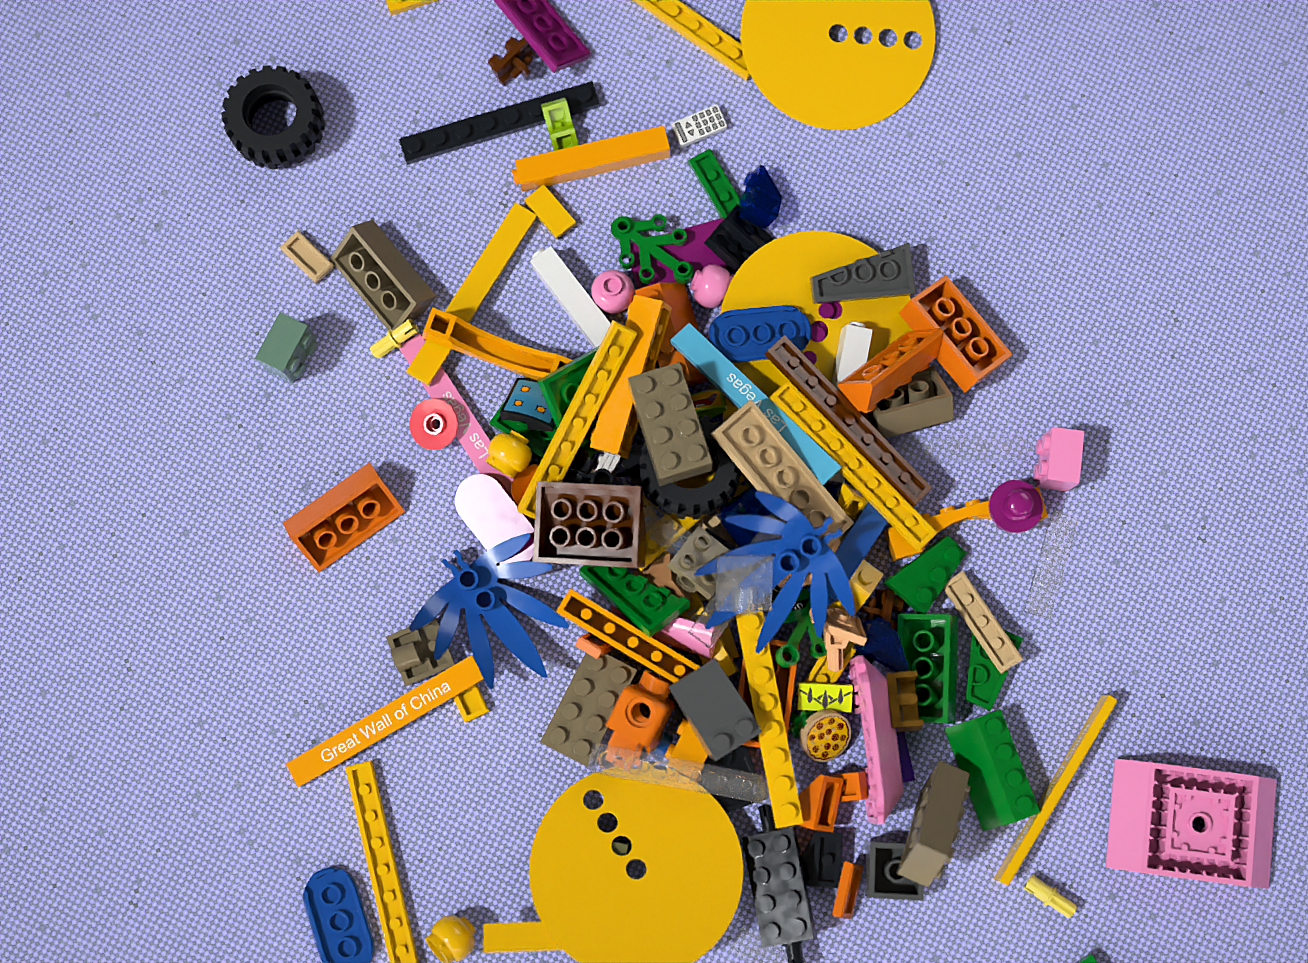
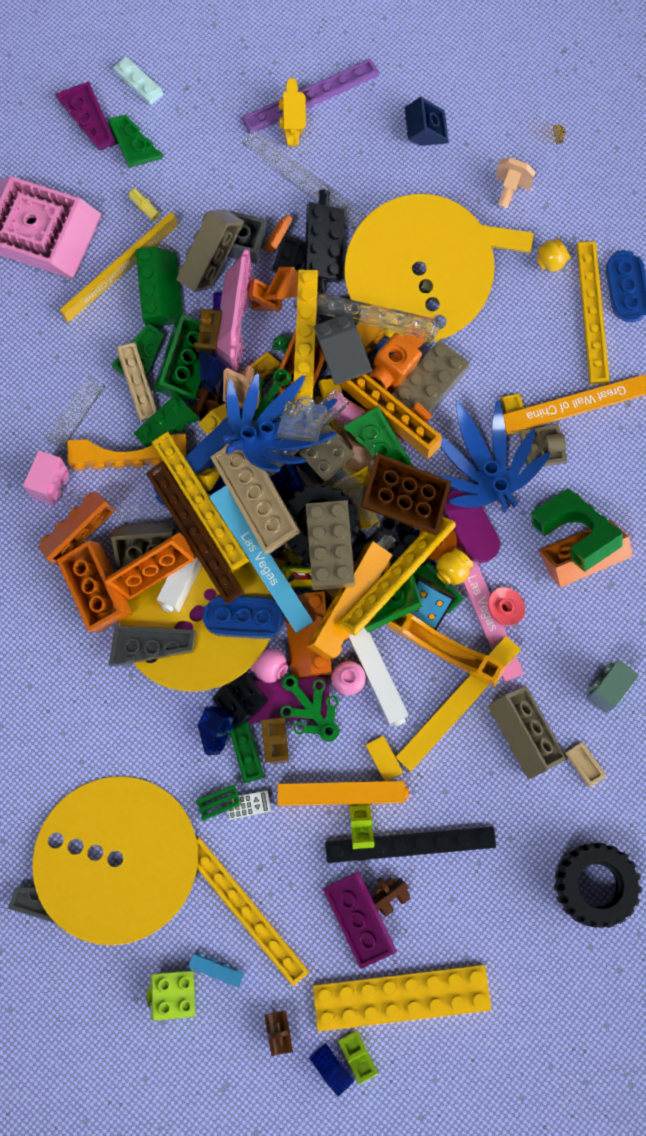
camera: 165 degrees left, 5 degrees down
(373, 568) = (570, 508): none -> green arch
(394, 338) = (525, 680): light yellow axle -> none
(684, 197) = (275, 741): none -> pearl gold window
(749, 109) = (202, 809): none -> green tile
(823, 696) = (261, 355): neon yellow tile -> none
(825, 735) = (268, 330): tile -> none
(1002, 402) = (76, 528): none -> orange slope
(1015, 506) = (89, 449): magenta plate -> none

